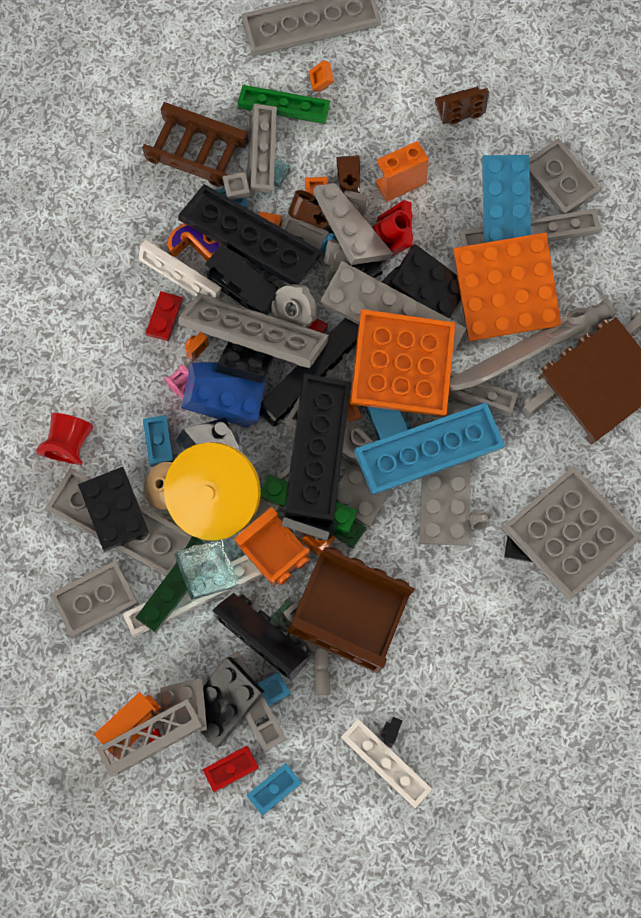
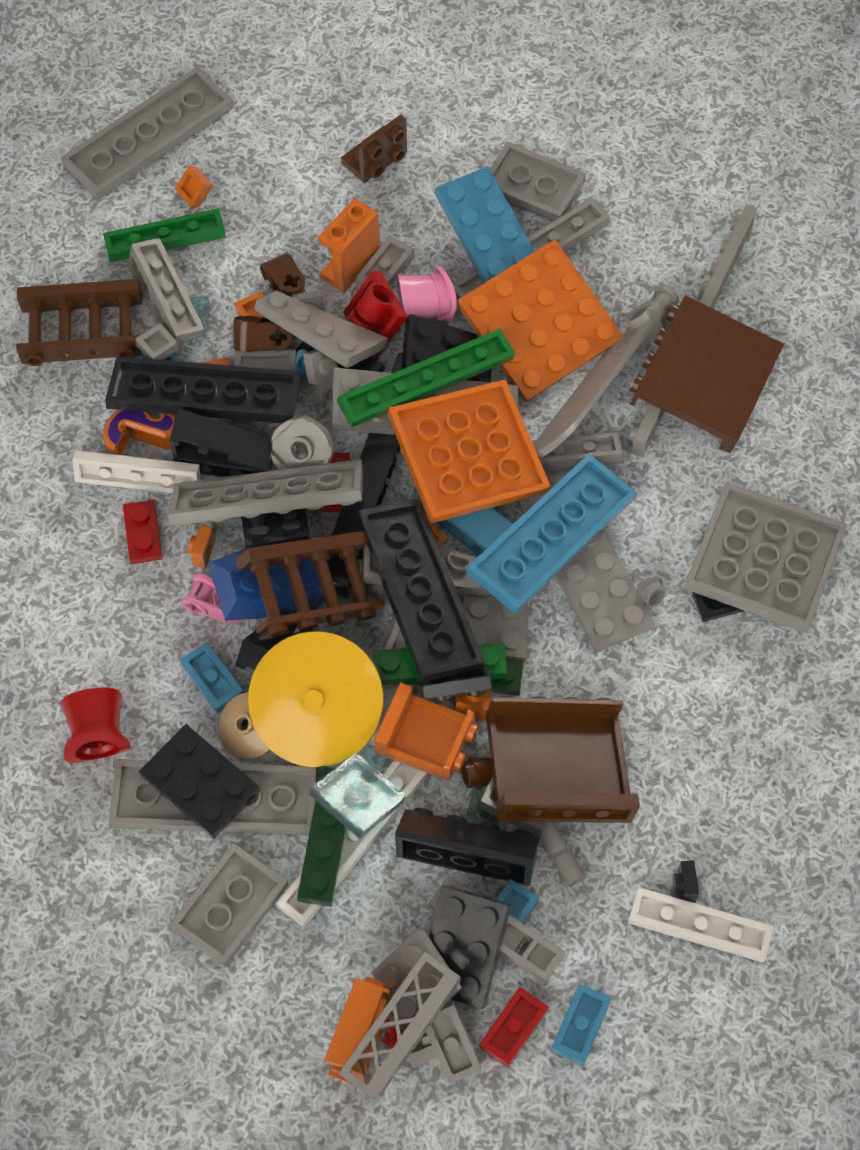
camera: 30 degrees left, 10 degrees down
(181, 760) = (447, 1045): none -> light grey hinge
(262, 392) = (318, 552): none -> reddish brown fence
(295, 589) = (477, 772): none -> reddish brown cone
(400, 297) = (425, 377): none -> green plate
(425, 194) = (389, 259): none -> light grey plate
(436, 233) = (428, 295): none -> bright pink hat

